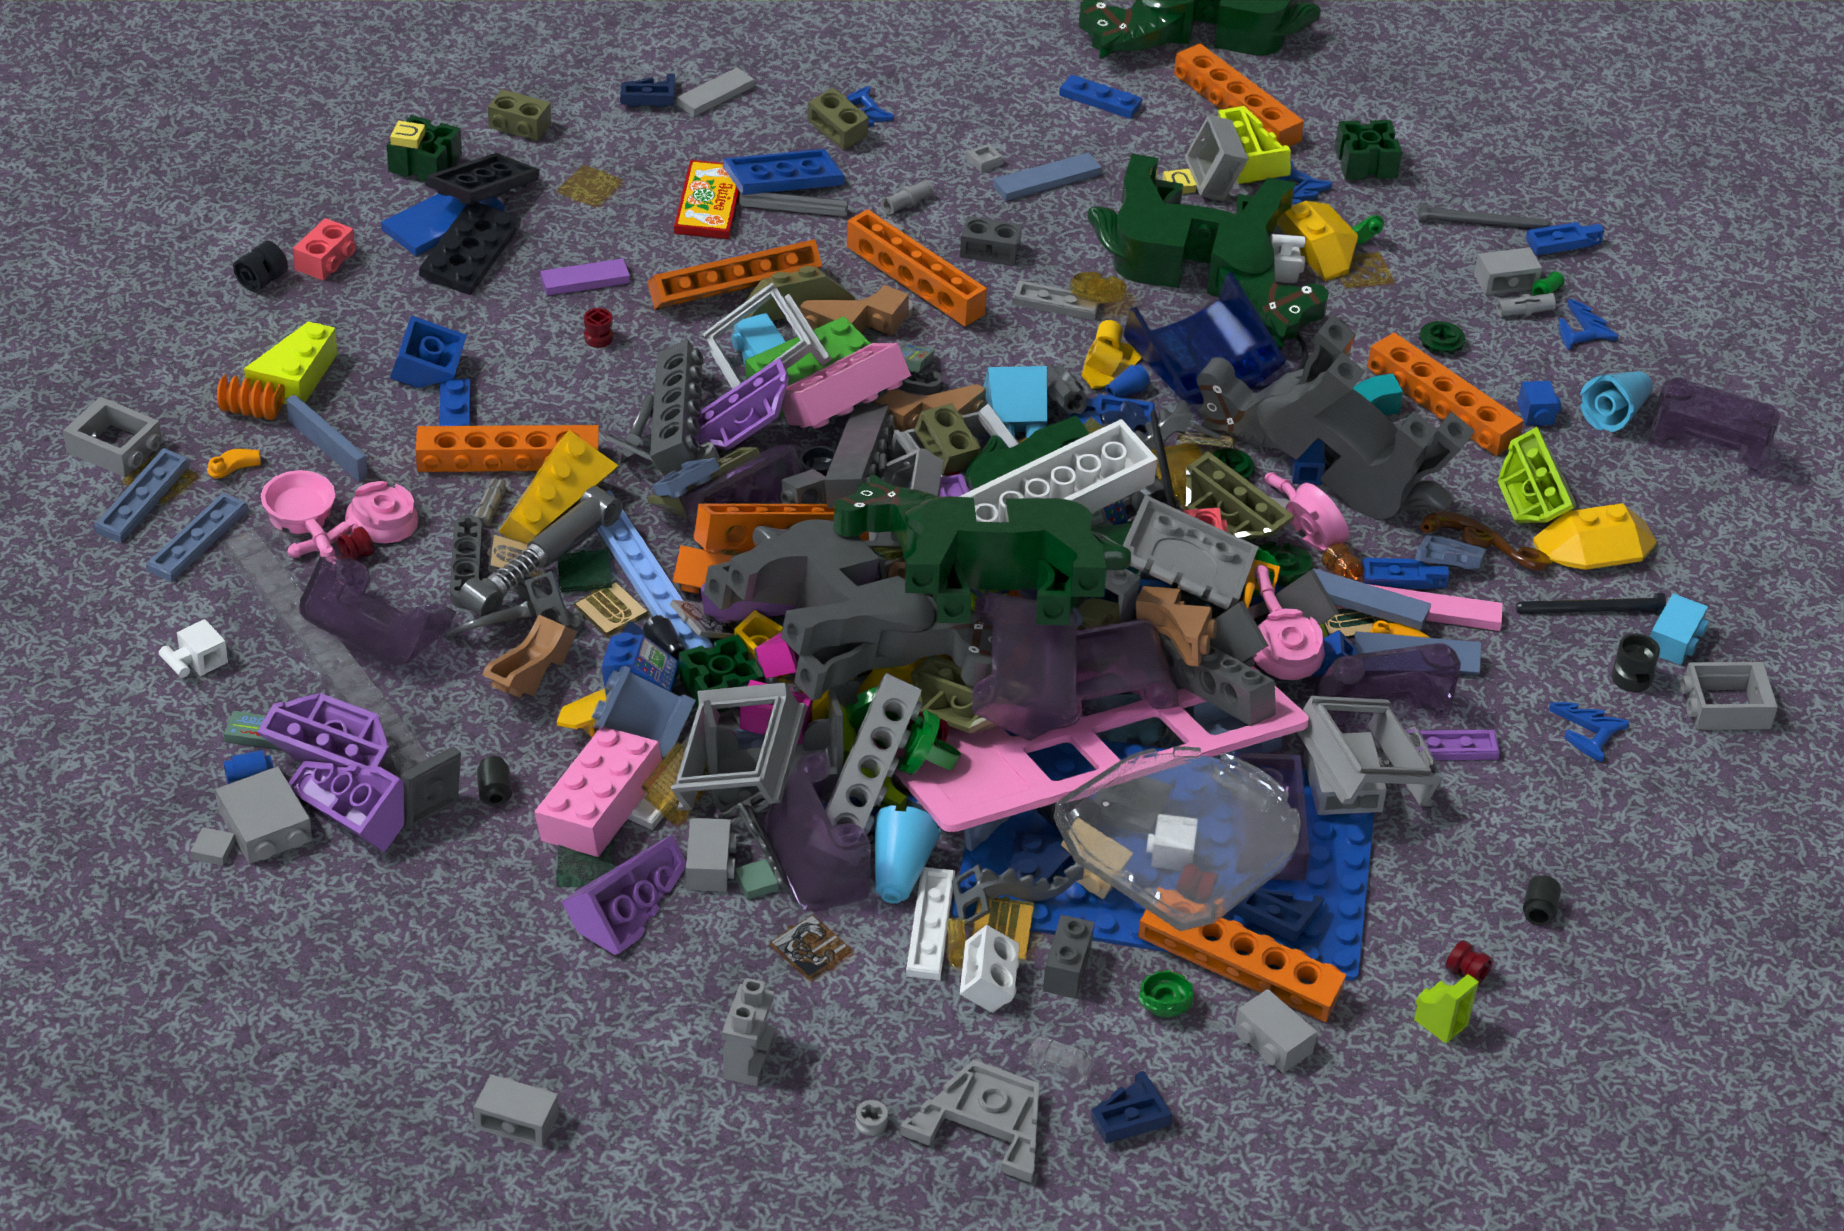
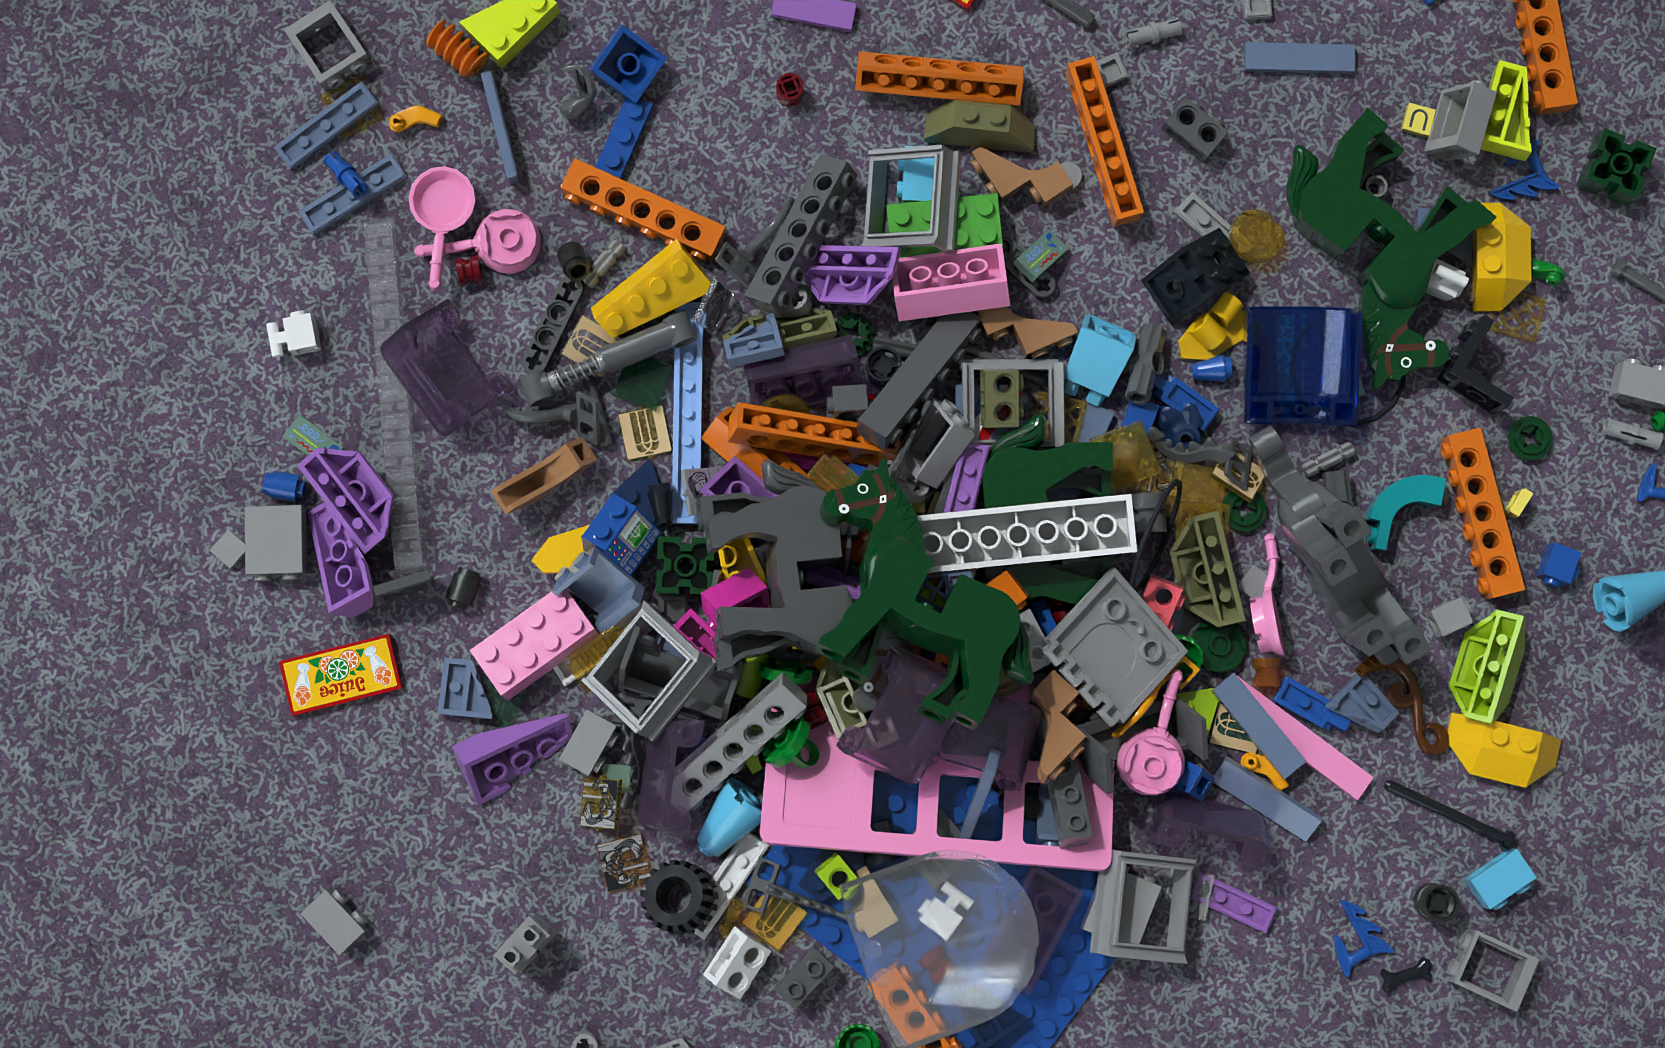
camera: 25 degrees right, 40 degrees up
(184, 515) = (346, 174): none -> blue pin
(392, 397) = (577, 105): none -> dark grey piece
(397, 904) = (340, 674): none -> tile
(460, 500) = (573, 261): none -> pearl dark grey brick
(545, 865) = (463, 691): none -> sand blue wing
(623, 481) = (713, 306): none -> piece
(753, 897) = (601, 803): none -> piece
(890, 933) = (657, 897): none -> black tyre
(1043, 843) = (828, 868): none -> lime brick
(1066, 311) = (1195, 274): none -> black bracket
(1141, 697) = (980, 794): none -> sand blue tile
(1352, 300) = (1466, 382): none -> black bracket
(1469, 370) = (1517, 503): none -> light yellow tile
(1473, 469) = (1449, 617): none -> light grey brick
(1664, 729) = (1392, 979): none -> black piece

